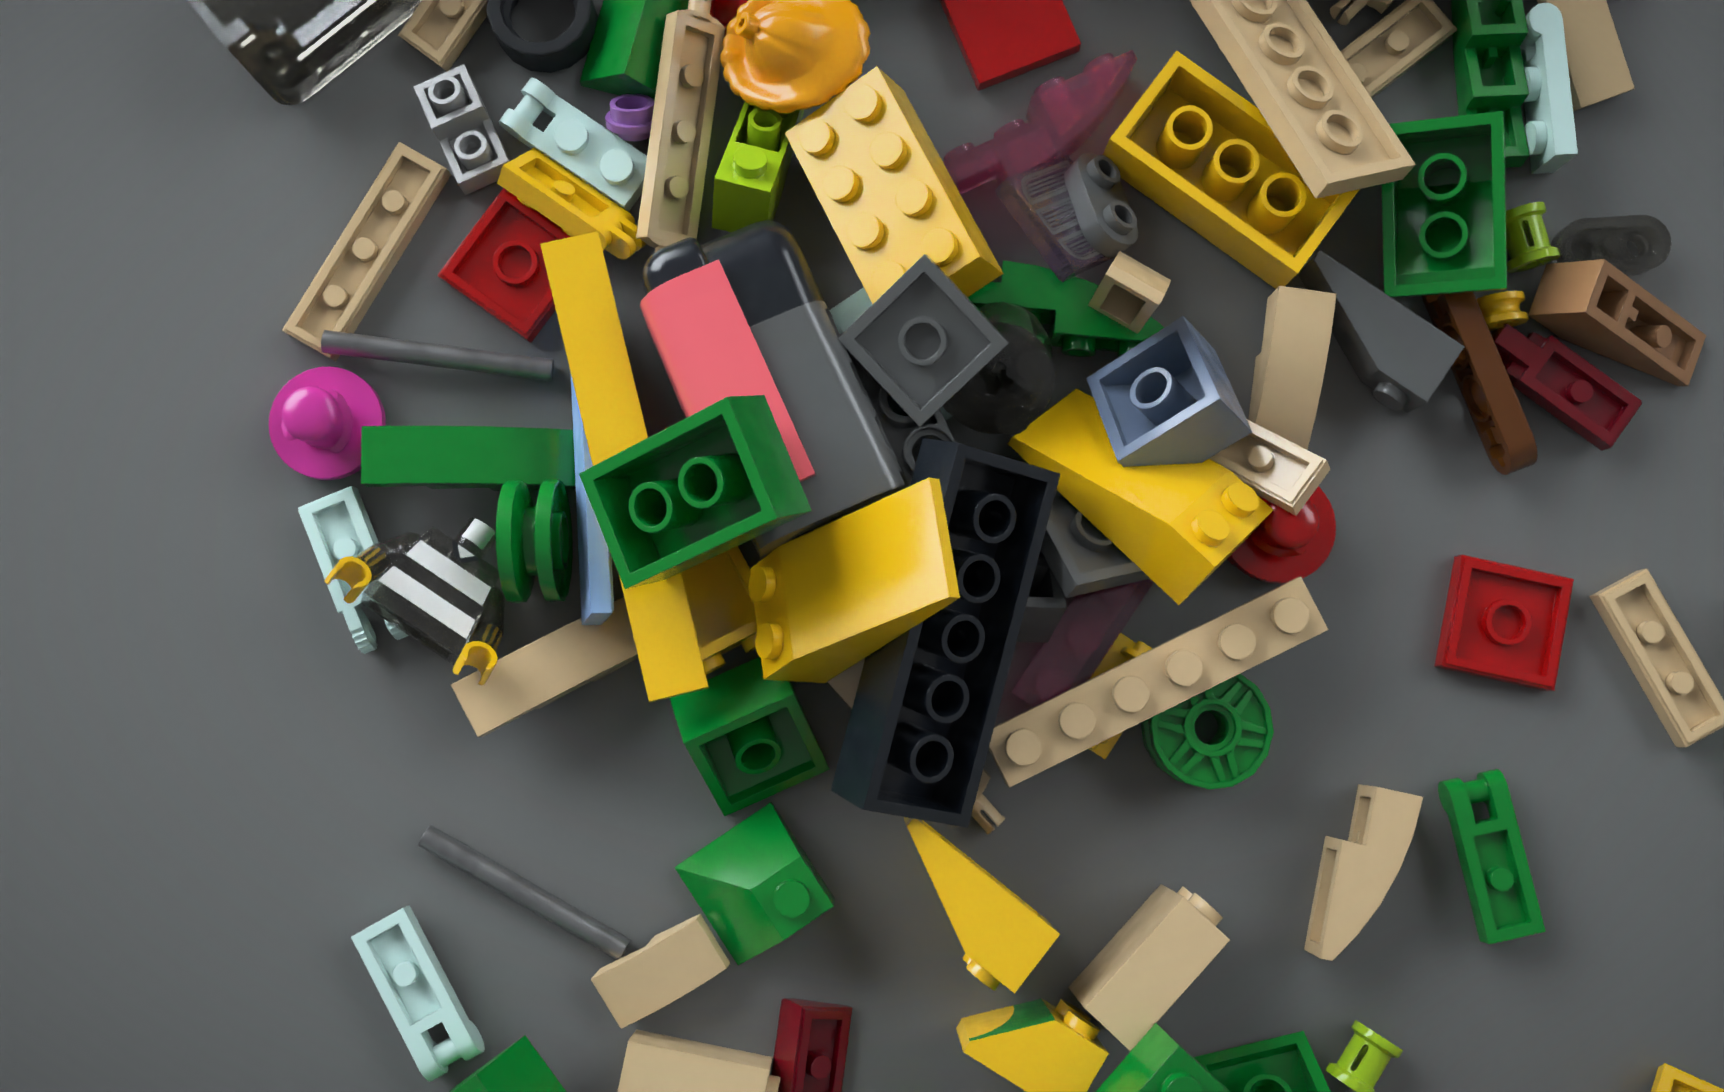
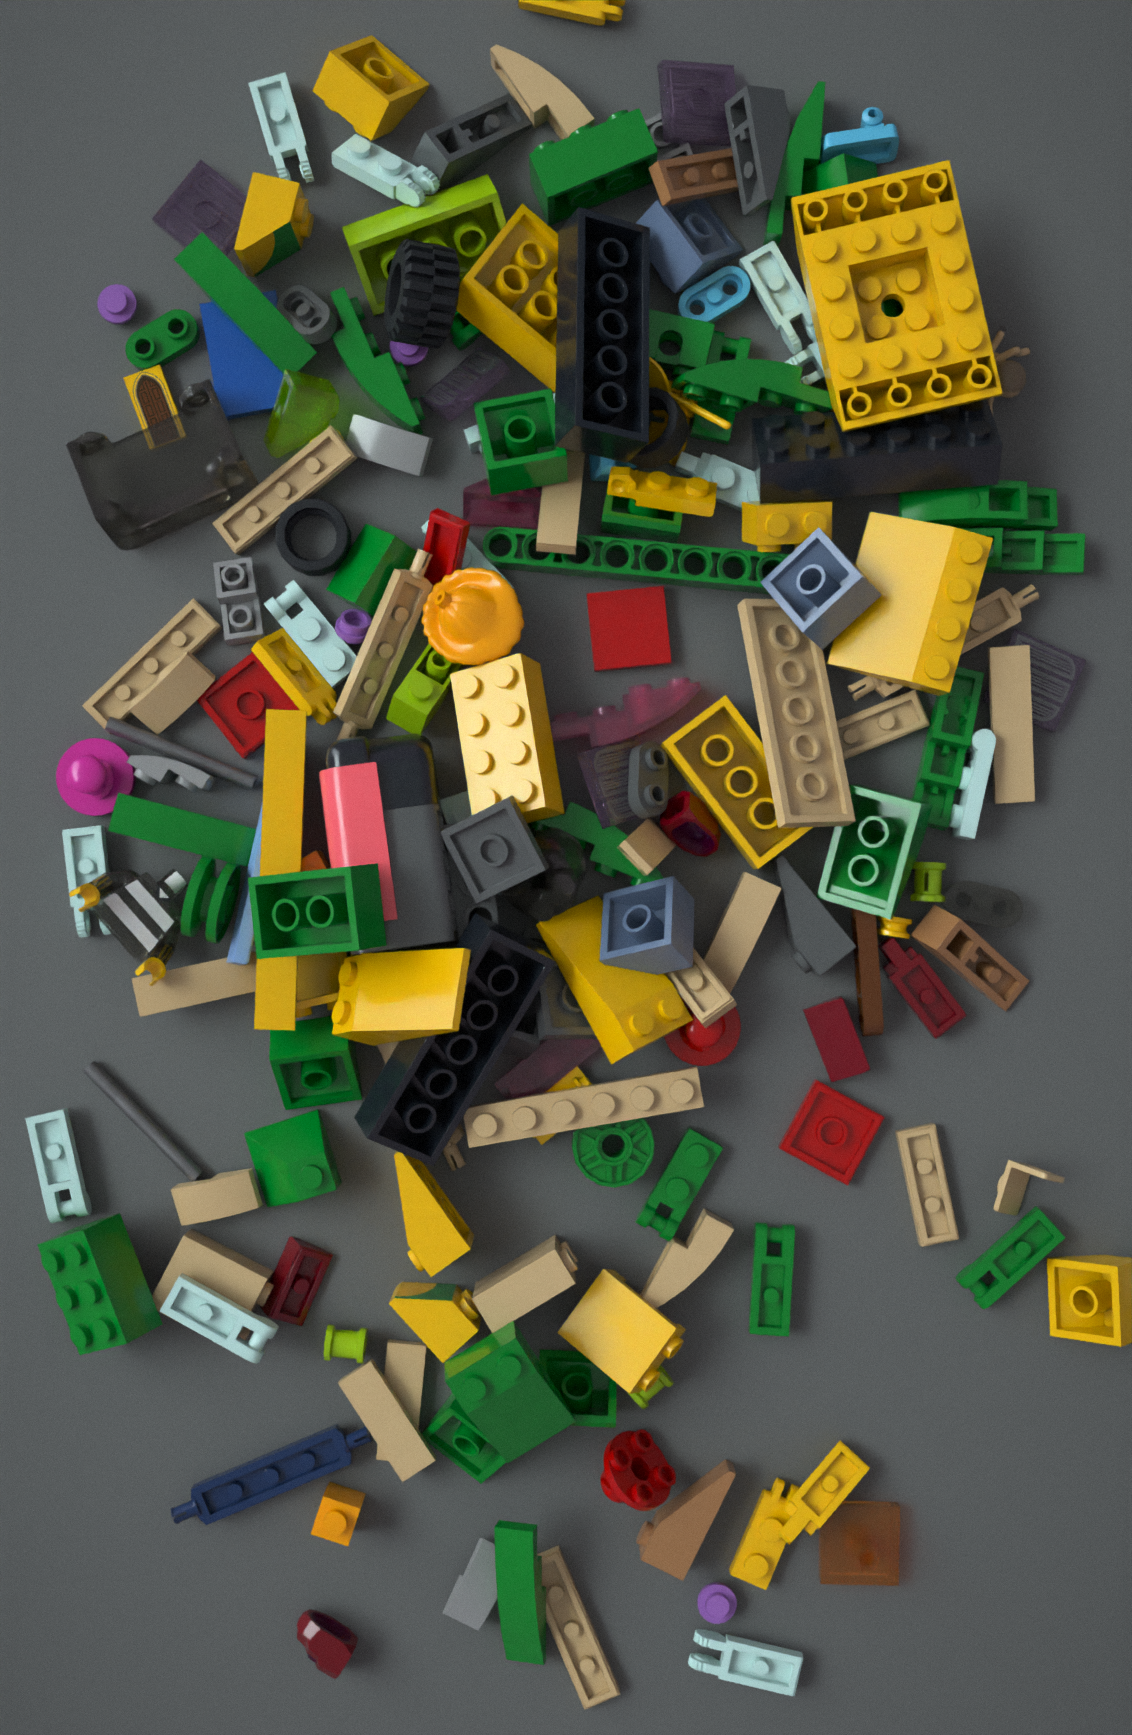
camera: 20 degrees right, 5 degrees up
(403, 274) = (173, 693): none -> tan slope
(419, 383) = (161, 769): none -> light grey slope
(1179, 249) = (690, 825): none -> dark red rock
(1311, 996) = (622, 1333): none -> yellow panel
(1315, 757) = (679, 1183): none -> green plate
(1472, 489) = (836, 1039): none -> dark red slope

